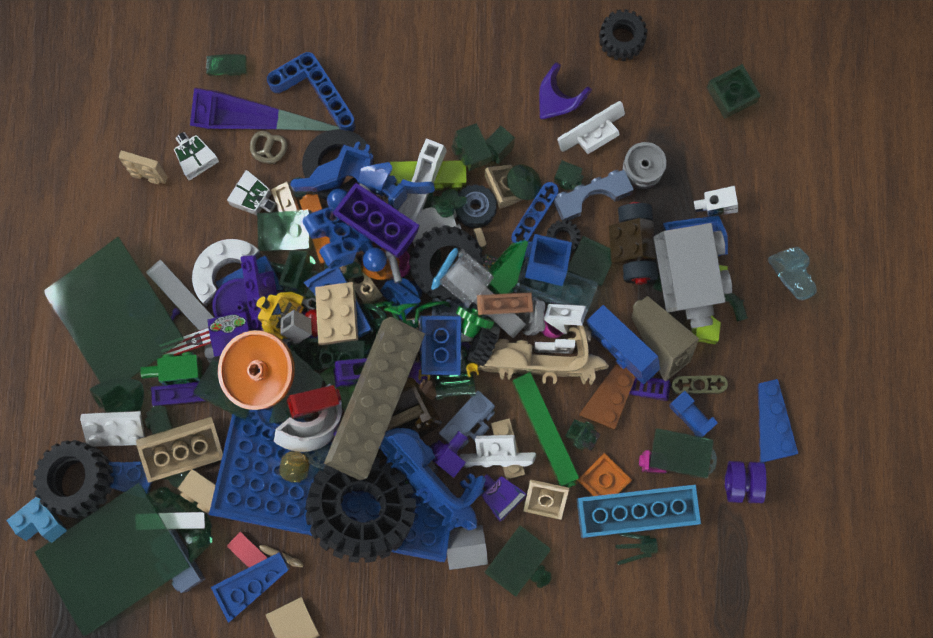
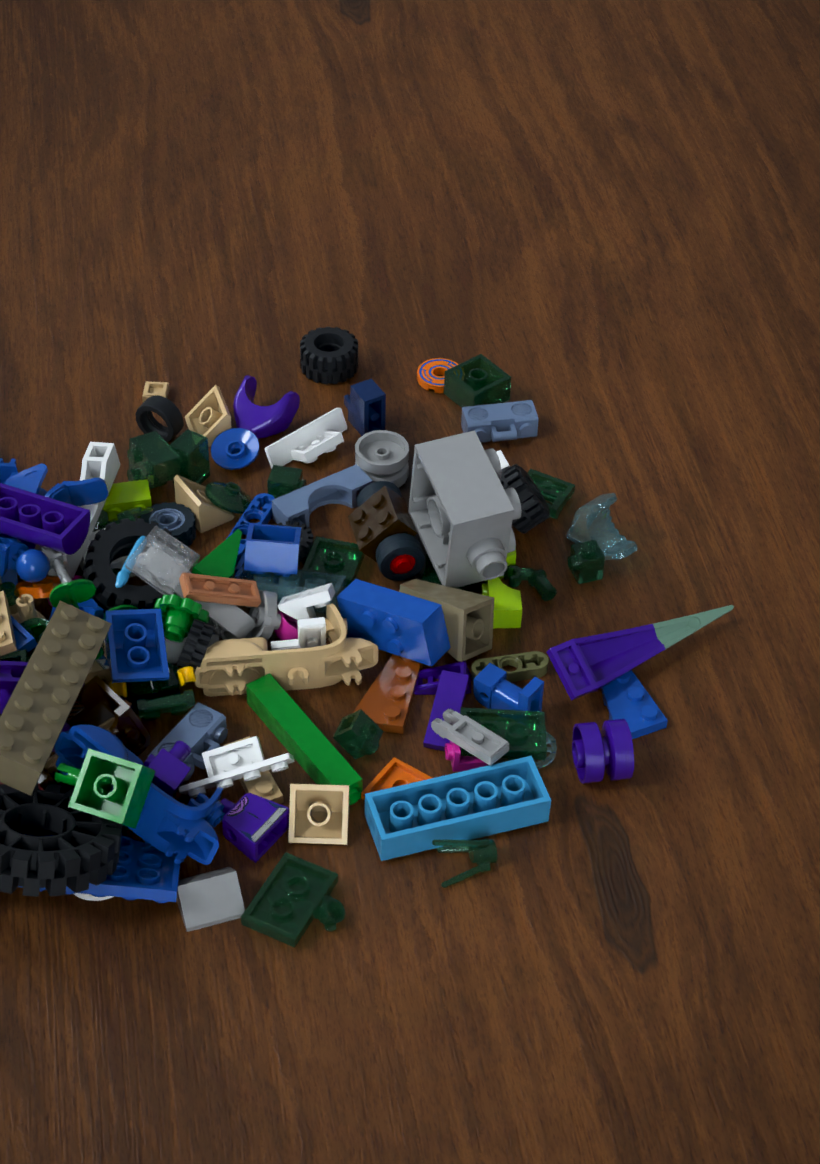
camera: 10 degrees left, 35 degrees down
(409, 490) = (94, 785): none -> green brick
(481, 93) = (166, 410): none -> black tyre
(482, 50) = (155, 389): none -> tan tile
(519, 95) = (210, 416): none -> tan slope
(528, 124) = (231, 442): none -> blue dish
(641, 104) = (366, 407): none -> dark blue hinge
(647, 421) = (449, 694): none -> dark purple tile
(658, 463) = (470, 736): none -> light grey hinge
(709, 55) = (428, 372): none -> orange tile
(739, 232) = (532, 501): none -> black tyre
(753, 131) = (501, 421): none -> sand blue piece
(761, 401) = (597, 660): none -> dark purple plate
(764, 210) = (553, 490): none -> clear green plate
(775, 295) = (586, 561): none -> clear green brick

